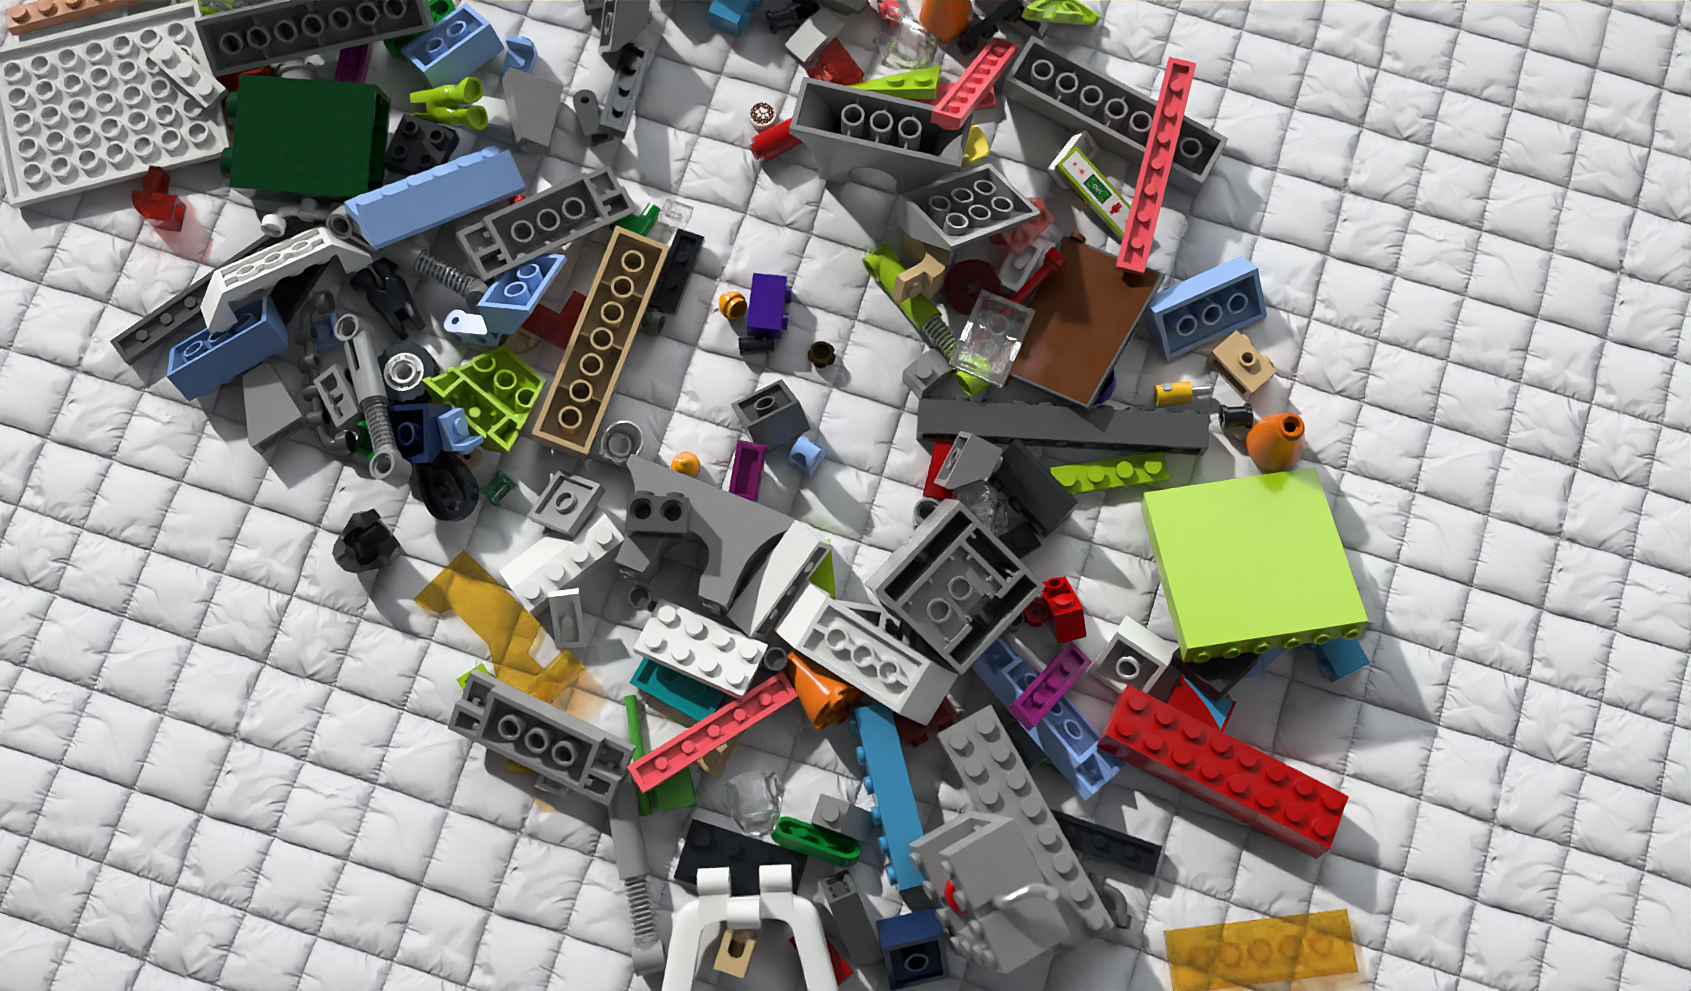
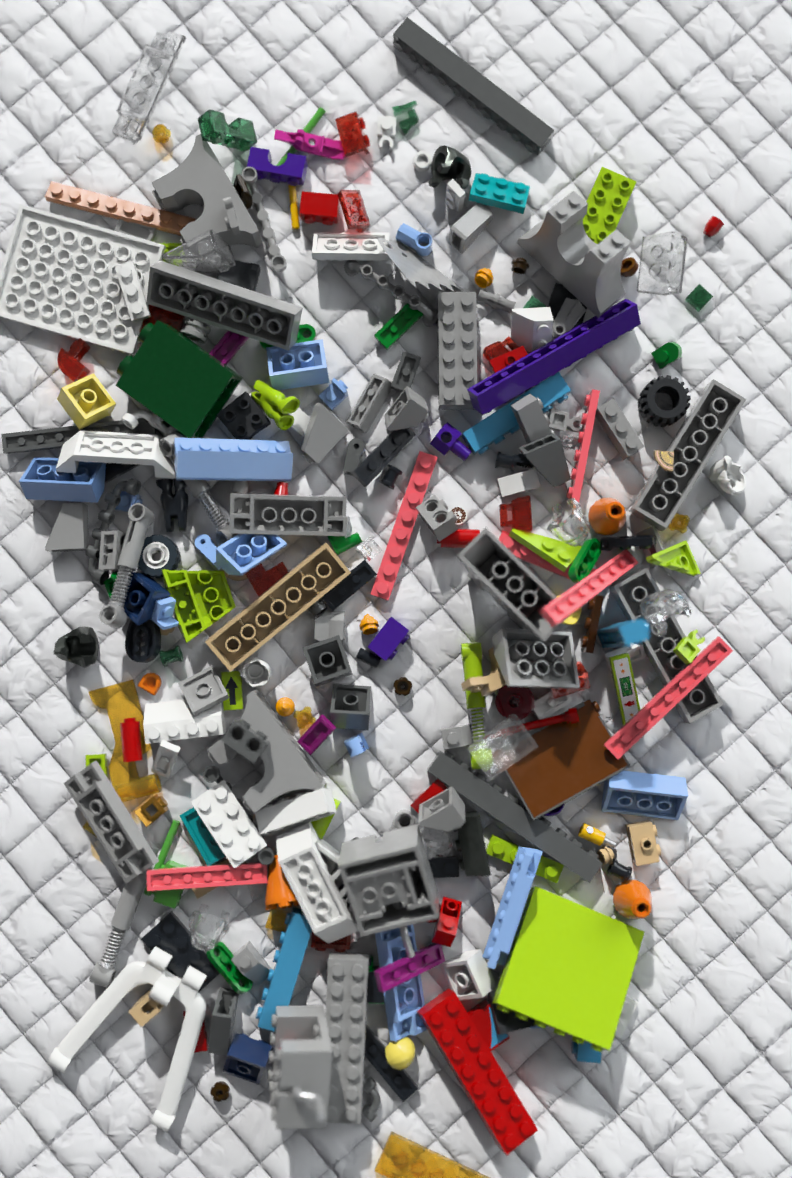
camera: 30 degrees right, 10 degrees up
(201, 235) = (86, 401): none -> light yellow brick
(490, 540) = (151, 683): none -> orange tile
(507, 623) = (131, 740): none -> red brick
(571, 47) = (369, 403): none -> light grey slope
(589, 697) = (152, 810): none -> pearl gold window
(615, 497) = (233, 685): none -> lime tile
(649, 114) = (390, 476): none -> black bush
(688, 338) = (330, 625): none -> light grey slope
(703, 166) = (403, 525): none -> coral plate
(705, 35) = (454, 445): none -> dark purple piece
(706, 374) = (327, 661): none -> dark grey slope
(717, 456) = (309, 718): none -> clear yellow plate
(738, 125) = (437, 518): none -> light grey brick
(840, 743) = (276, 920): none -> clear yellow plate
(950, 68) = (585, 560): none -> green plate
(1009, 145) = (591, 624): none -> reddish brown plate
(1050, 109) = (624, 633): none -> dark azure brick
(1077, 60) = (661, 605): none -> clear piece
(1108, 811) = (400, 1053): none -> light yellow hair
(1130, 532) = (512, 905): none -> light blue slope
(1141, 94) = (687, 647): none -> lime plate
(1209, 406) = (606, 855): none -> tan plate

